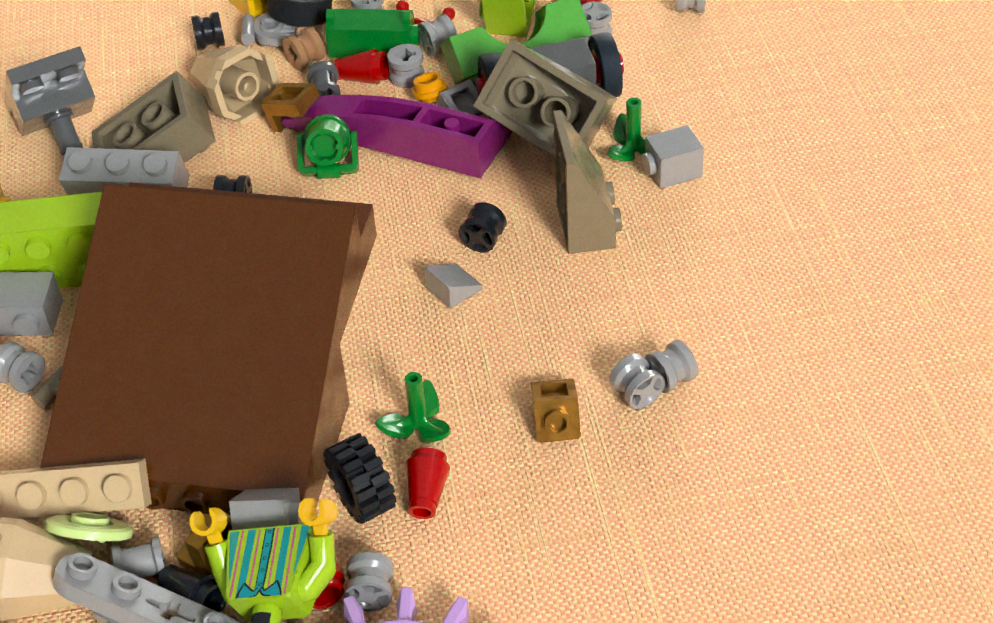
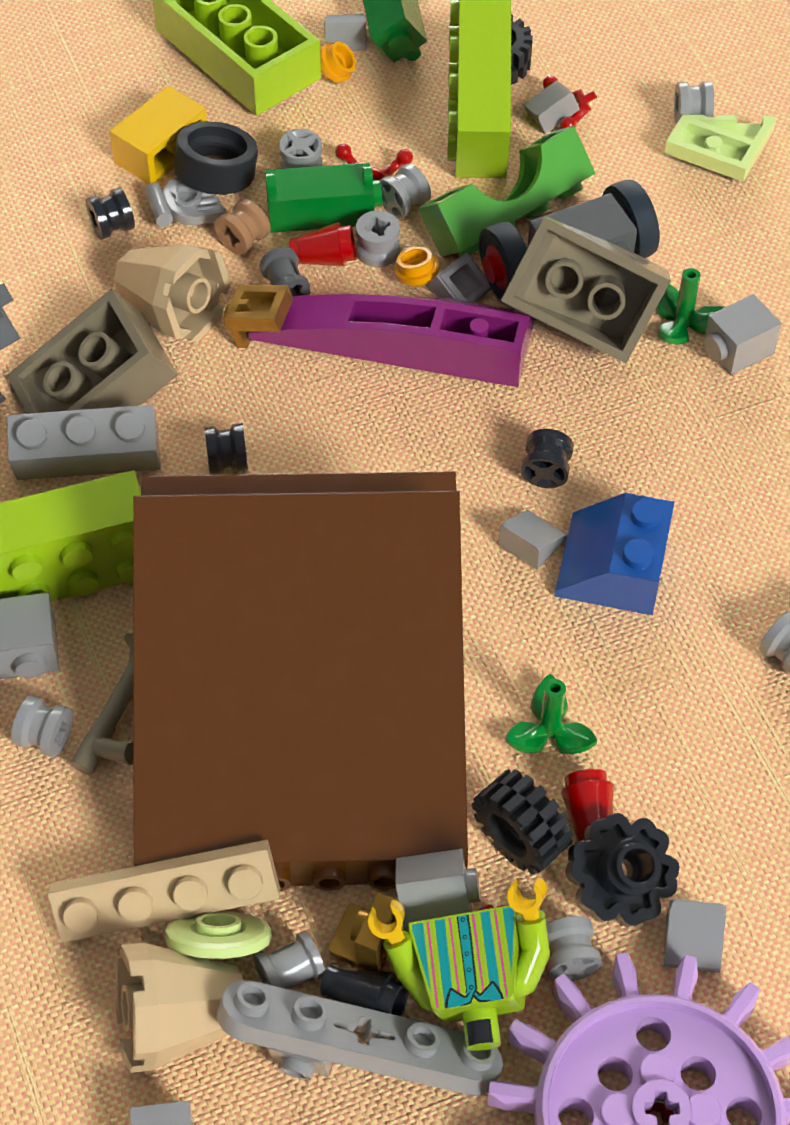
camera: 15 degrees left, 10 degrees up
(325, 143) = (326, 366): green piece -> none
(433, 549) = (598, 870): none -> black plant
(483, 584) = (695, 931): none -> light grey slope
(518, 301) = (616, 553): none -> blue slope
(556, 410) = (710, 690): pearl gold bracket -> none
(582, 193) = (657, 405): dark tan slope -> none
(598, 17) = (597, 146): light grey wheel -> none
(705, 24) = (719, 142): none -> yellowish green wing

